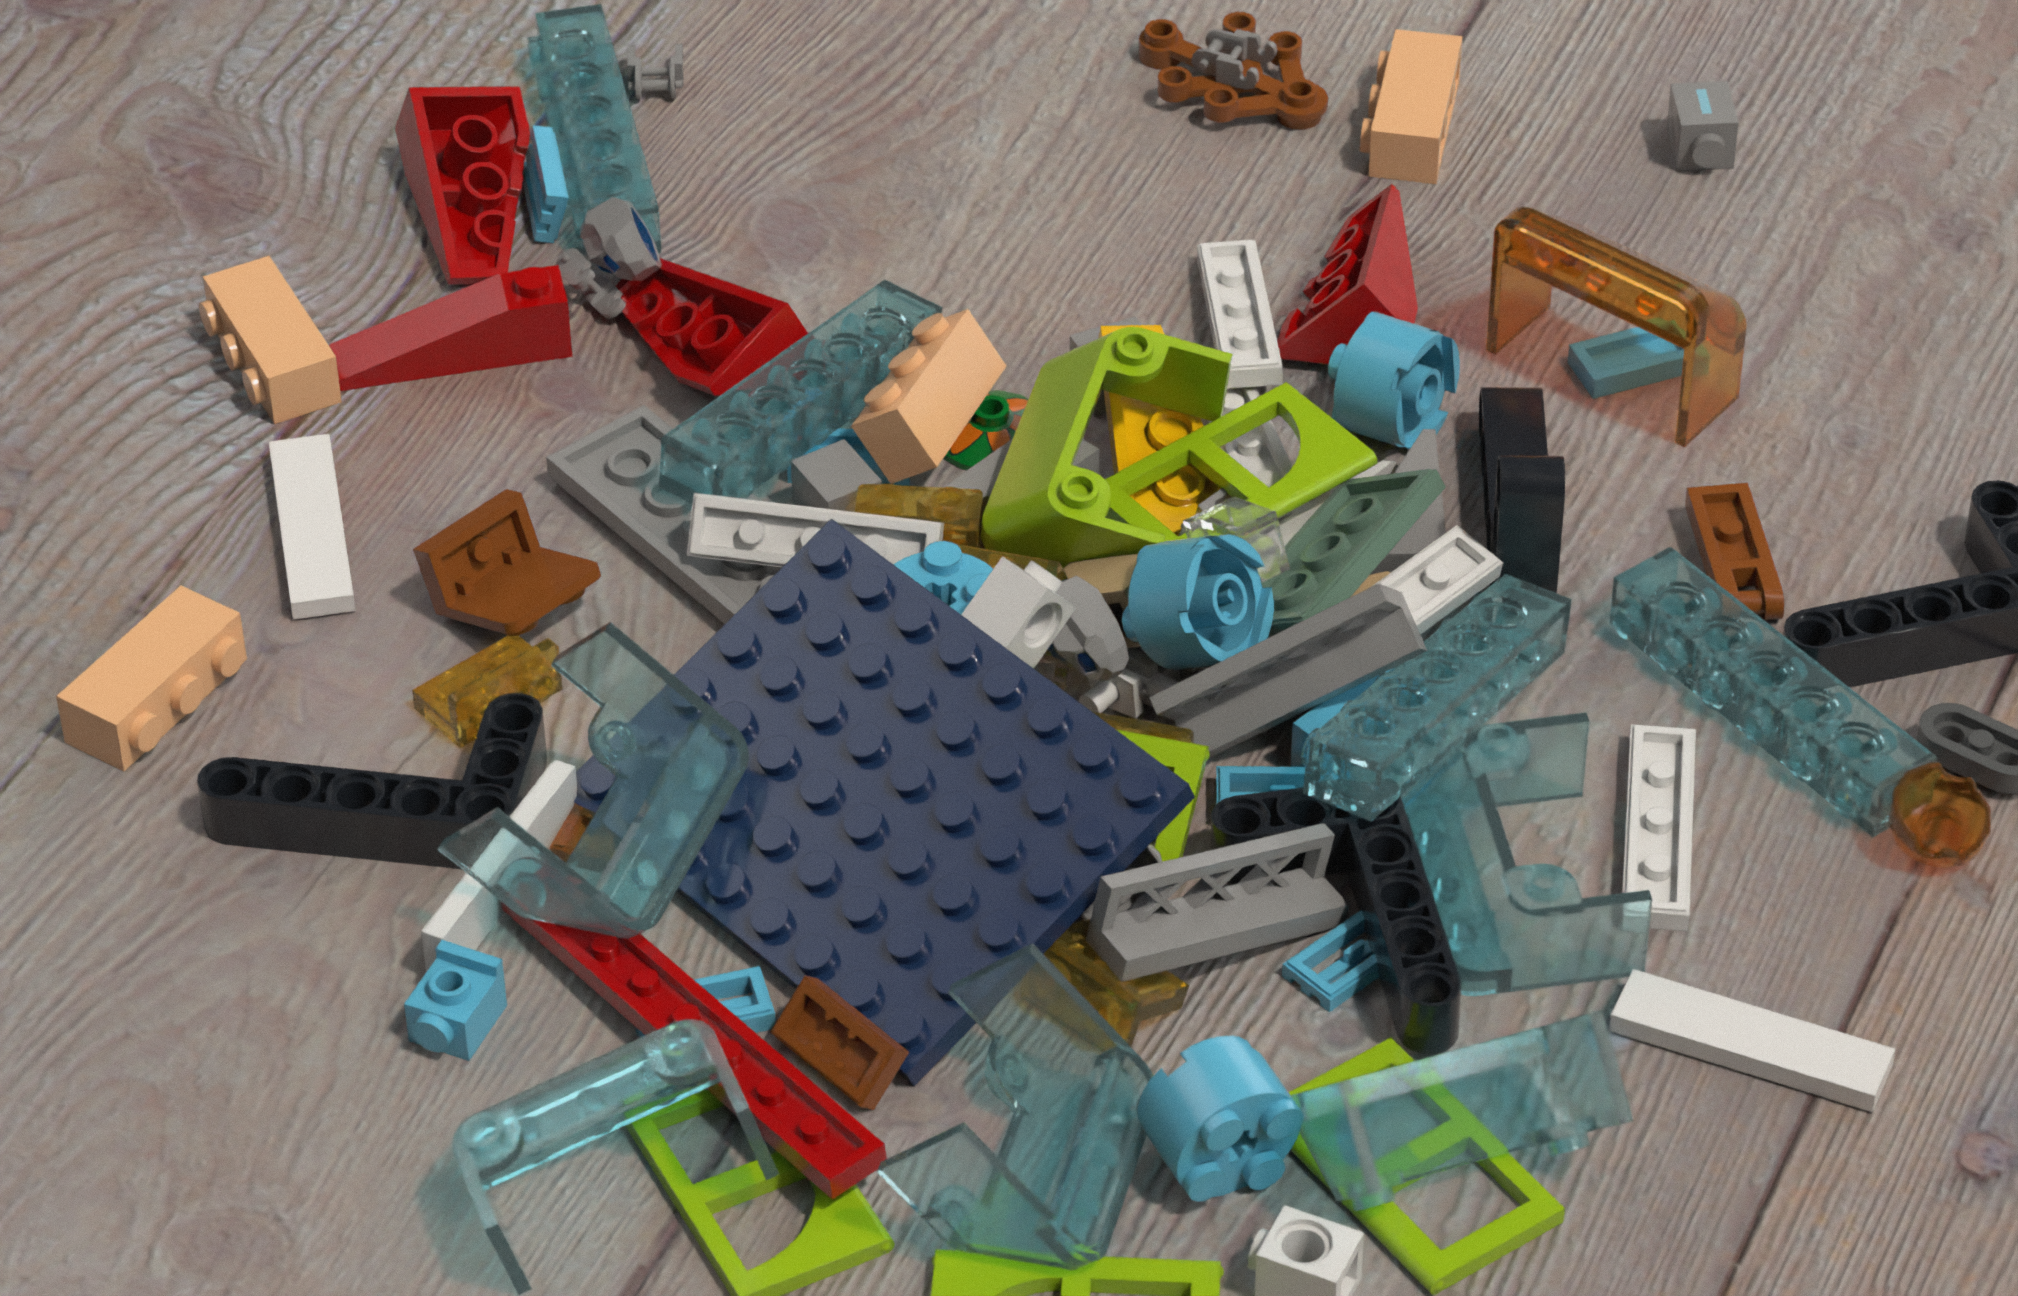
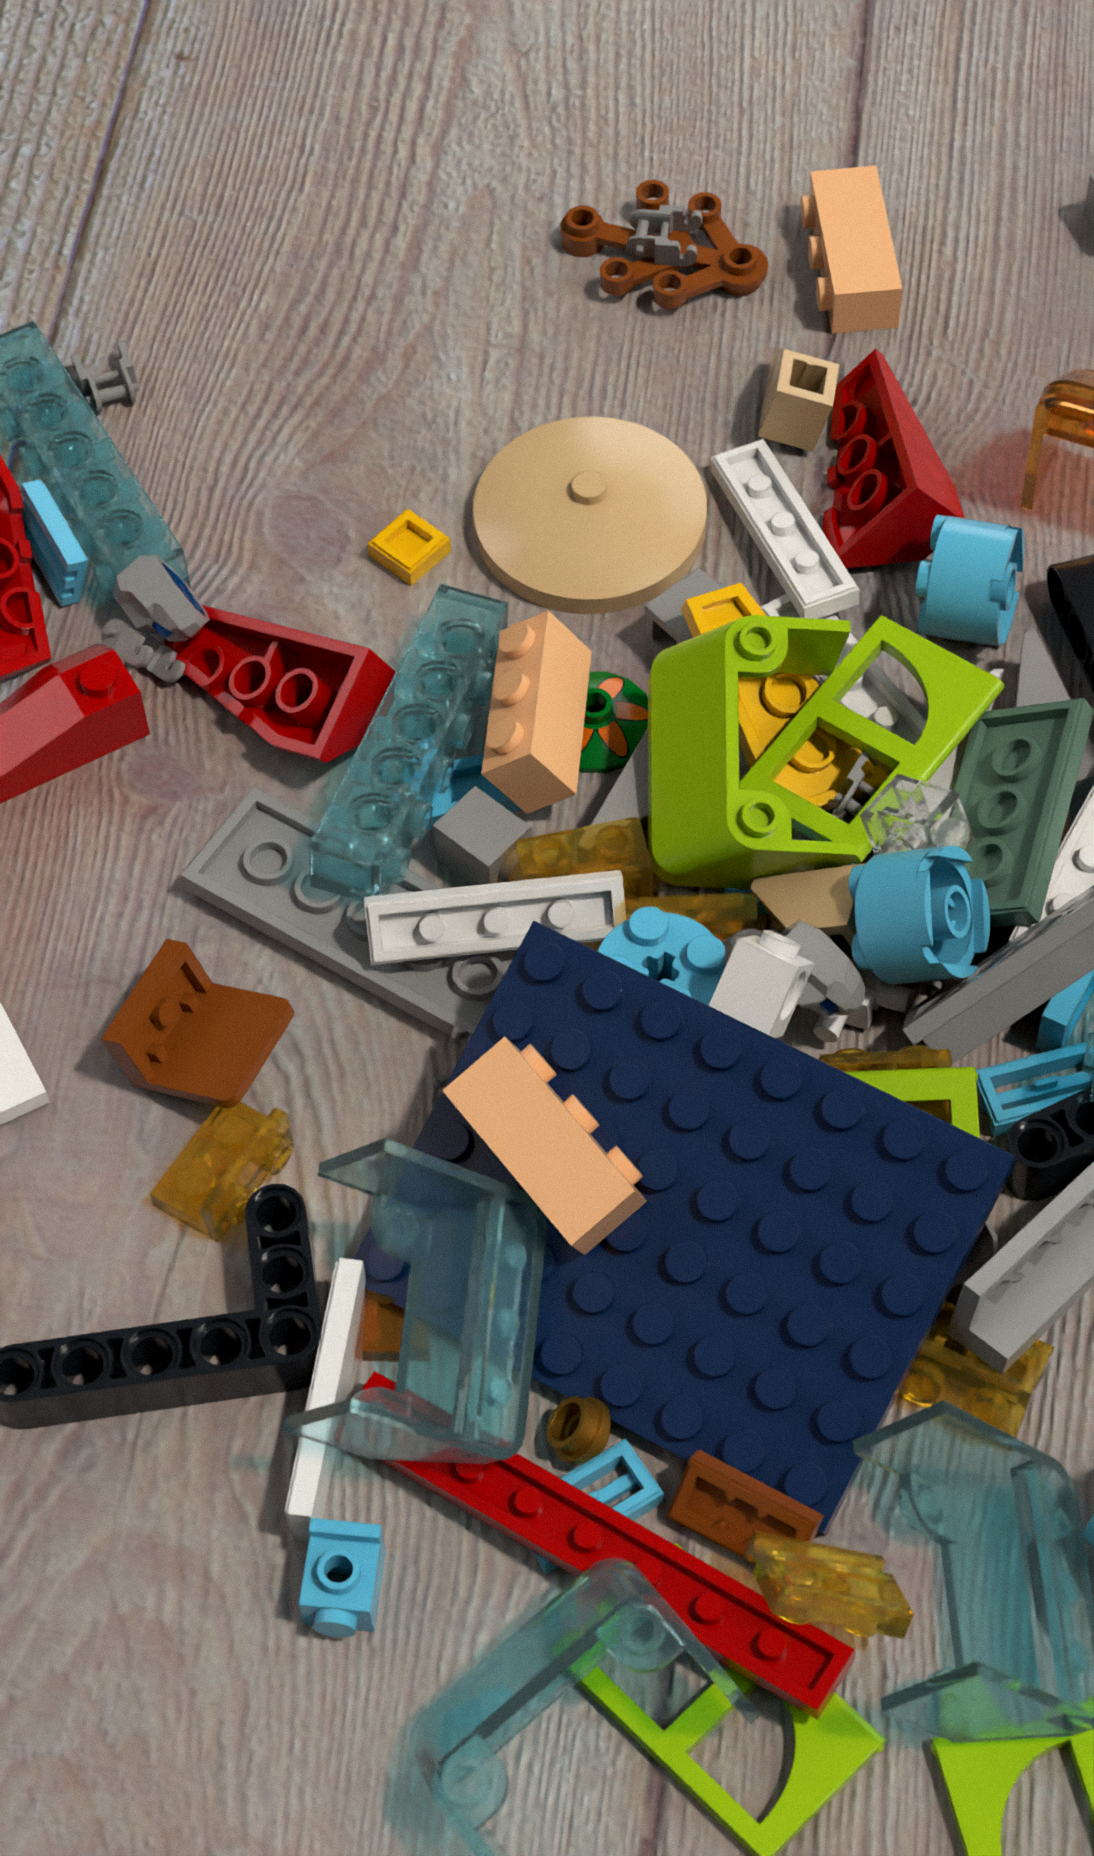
camera: 15 degrees left, 15 degrees up
(719, 946) = (579, 1429): none -> pearl gold plate
(770, 691) = (547, 1143): none -> light nougat brick
(860, 1083) = (828, 1586): none -> clear yellow plate
(878, 258) = (409, 547): none -> yellow tile
(1060, 265) = (590, 515): none -> tan dish
(1299, 208) = (797, 398): none -> tan slope

